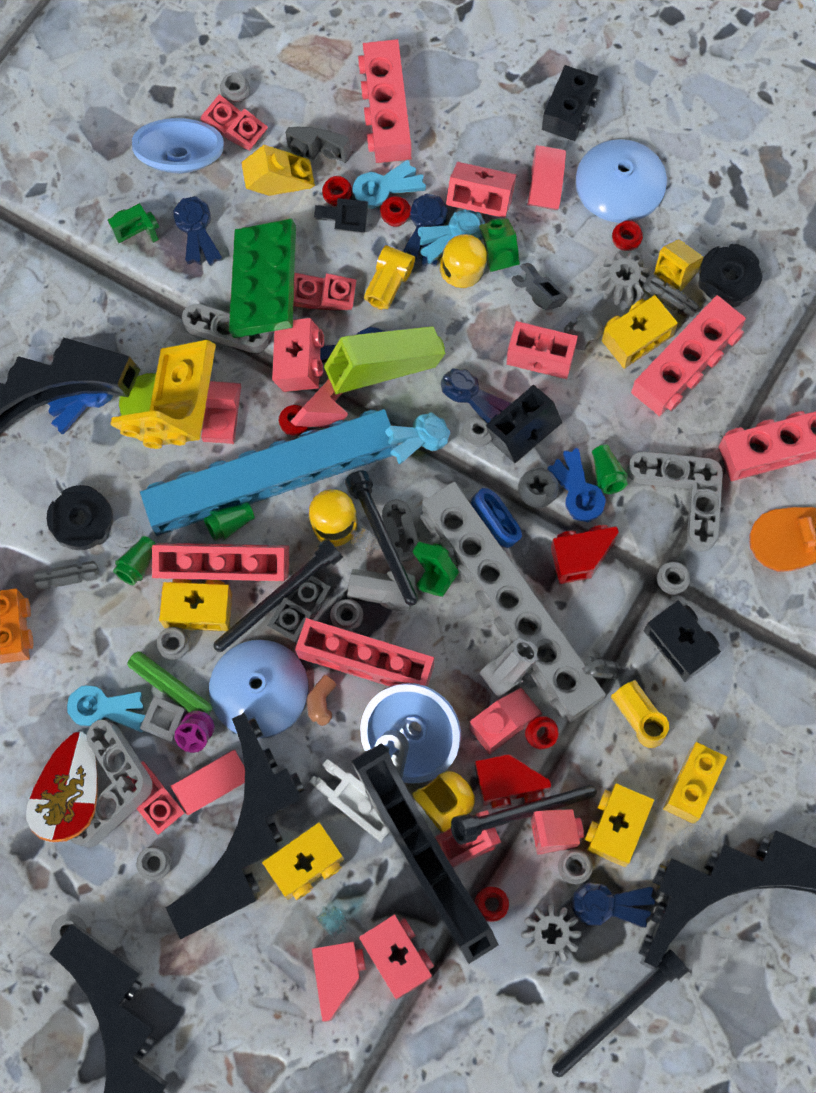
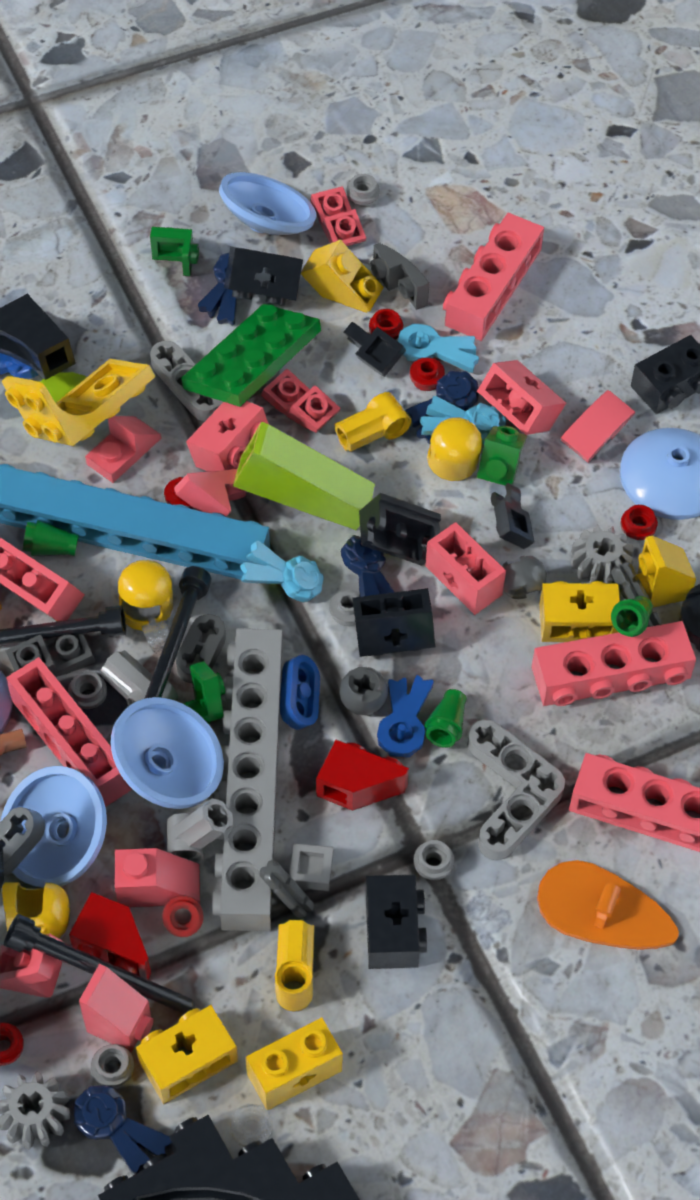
camera: 30 degrees right, 15 degrees down
(222, 207) = (283, 272): none -> black brick
(453, 628) = (175, 740): none -> light blue dish
(475, 350) = (398, 528): none -> black hinge
(599, 638) = (311, 866): none -> light grey plate
(686, 314) = (631, 616): none -> green cone

